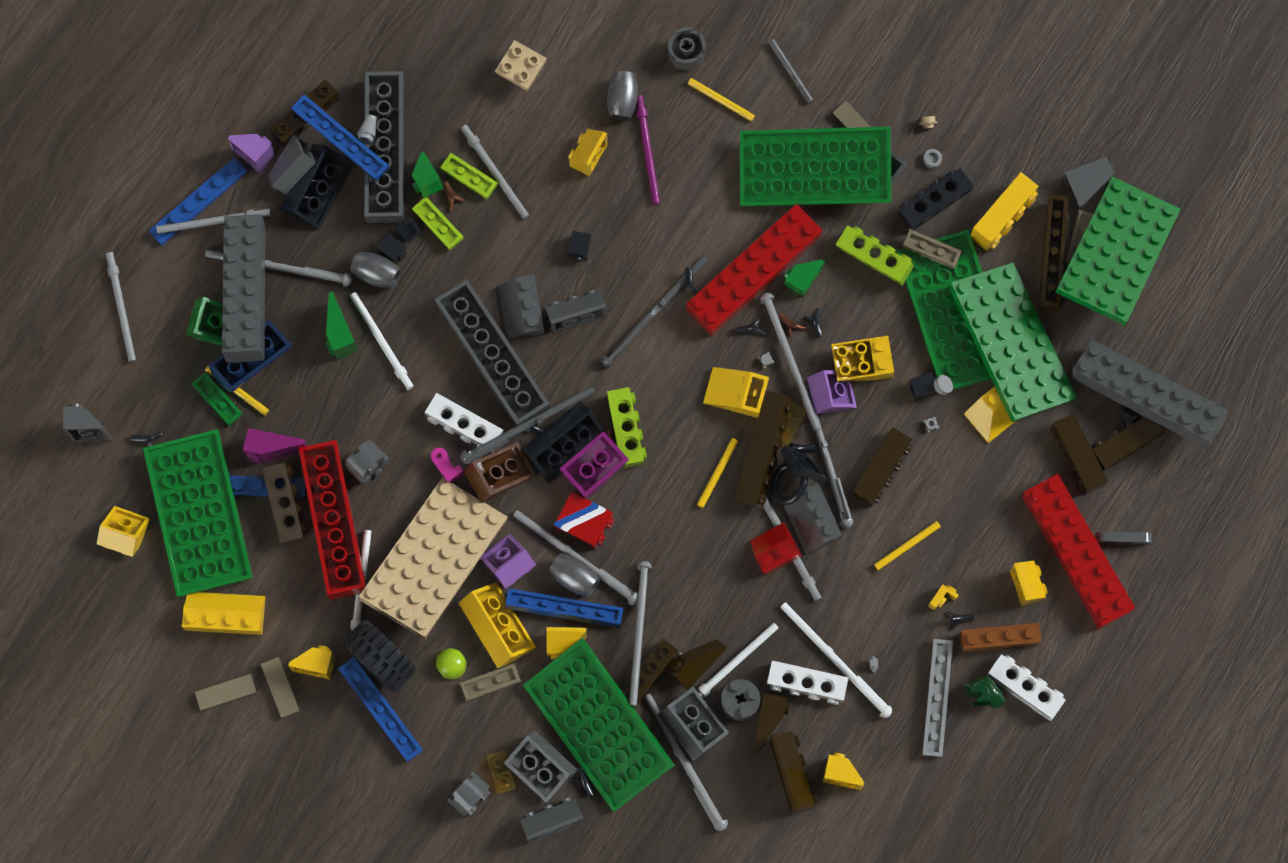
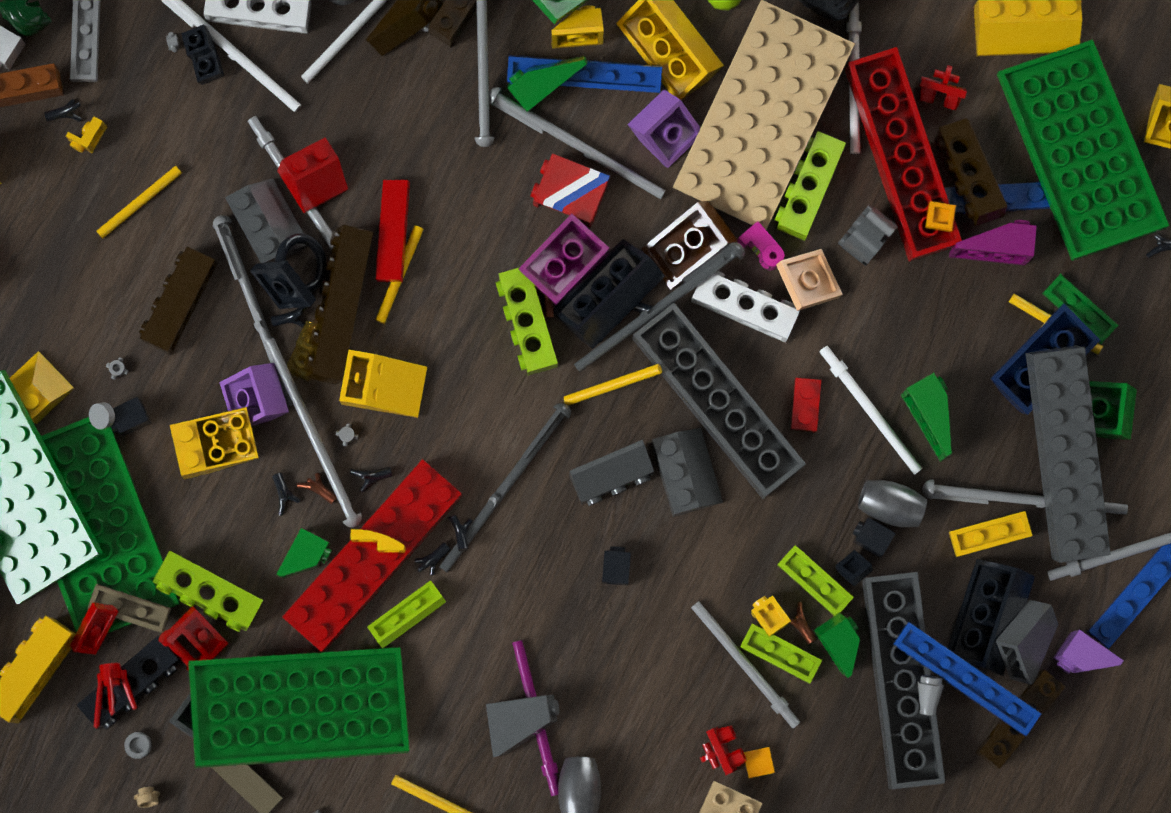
camera: 170 degrees right, 5 degrees up
(294, 572) = (931, 86): none -> red hips
(307, 244) = (990, 534): none -> yellow plate
(312, 466) = (940, 216): none -> light orange tile
(414, 435) = (809, 279): none -> light nougat plate
(414, 479) = (800, 224): none -> lime brick
(428, 349) = (805, 405): none -> red plate
(473, 201) = (770, 615): none -> yellow bracket
(493, 105) = (759, 762): none -> light orange tile
(521, 112) = (728, 761): none -> red hips
(568, 372) = (613, 384): none -> yellow bar
(574, 575) = (575, 115): flat silver piece -> none
(588, 151) = (619, 703): yellow slope -> none
(595, 602) = (541, 80): none -> green slope
(660, 146) = (518, 721): none -> dark grey slope
(712, 265) = (433, 558): none -> black bar
(719, 504) = (392, 231): none -> red tile
(733, 228) = (406, 614): none -> lime plate
(743, 270) = (384, 543): none -> yellow slope
(850, 650) = (203, 53): none -> black slope
(883, 226) = (198, 633): none -> red plate
(947, 200) = (110, 676): none -> red plant
(957, 235) = (94, 628): none -> red plate

